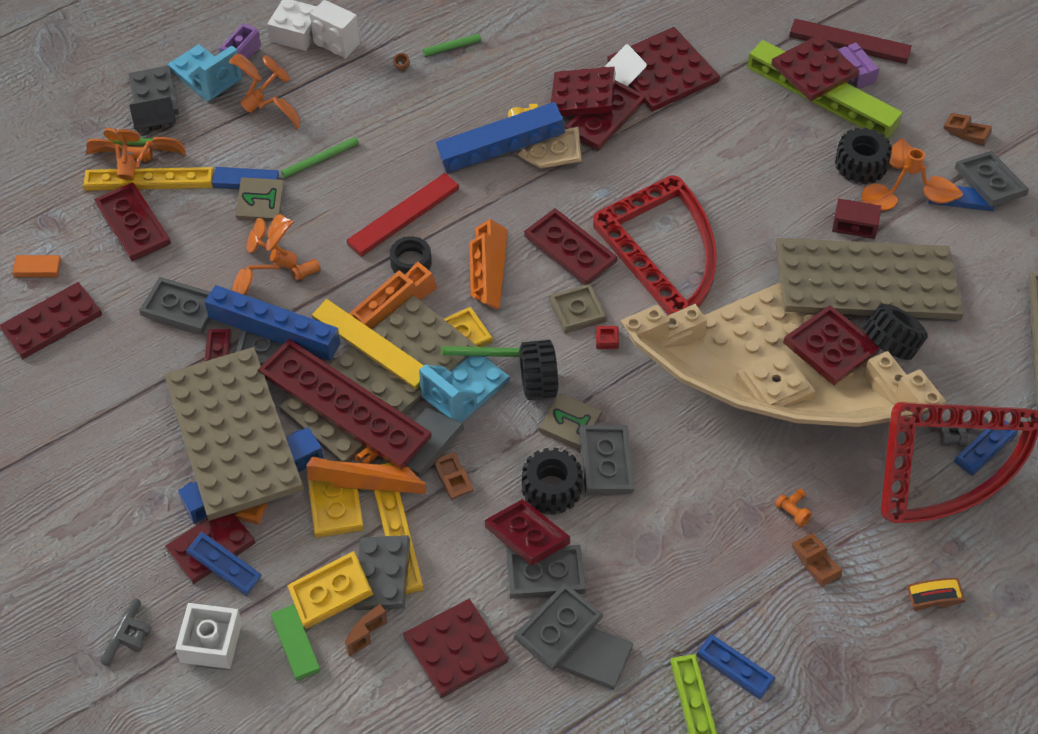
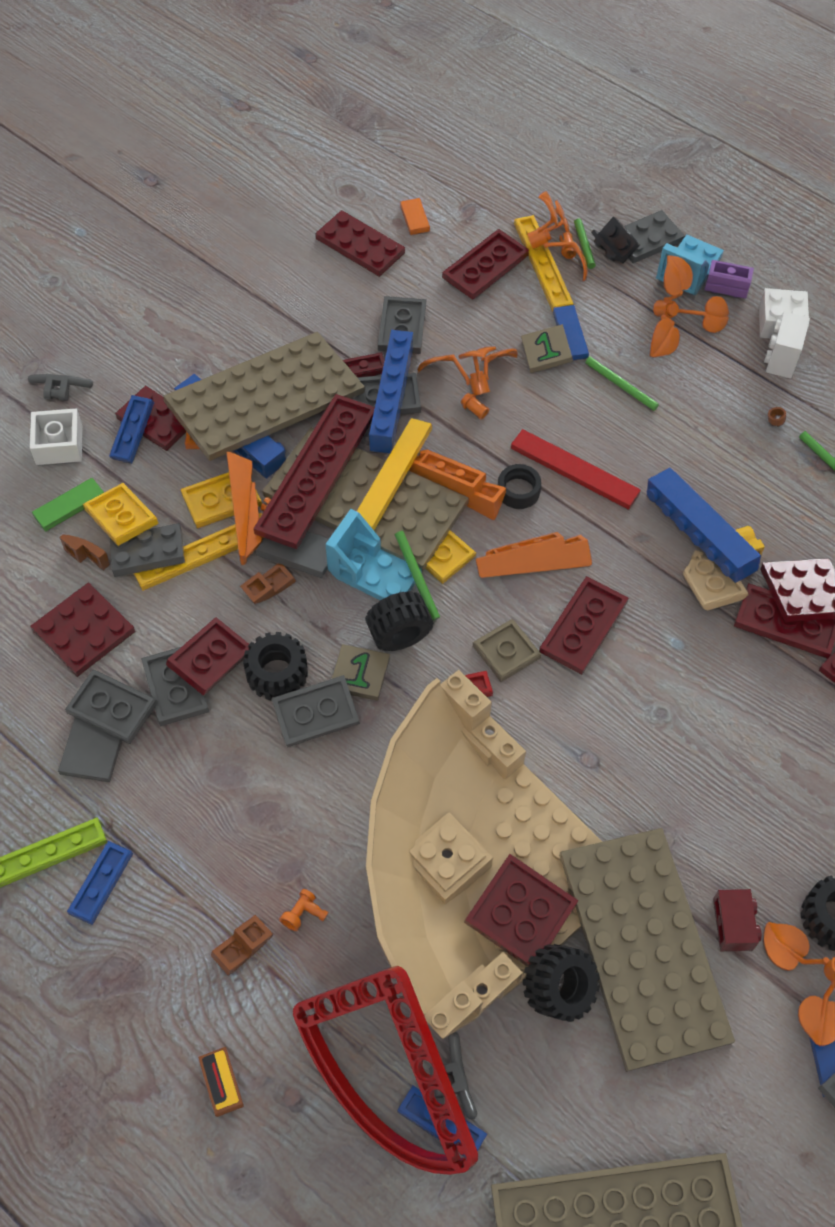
camera: 75 degrees right, 5 degrees up
(614, 222) = (633, 765): red beam -> none

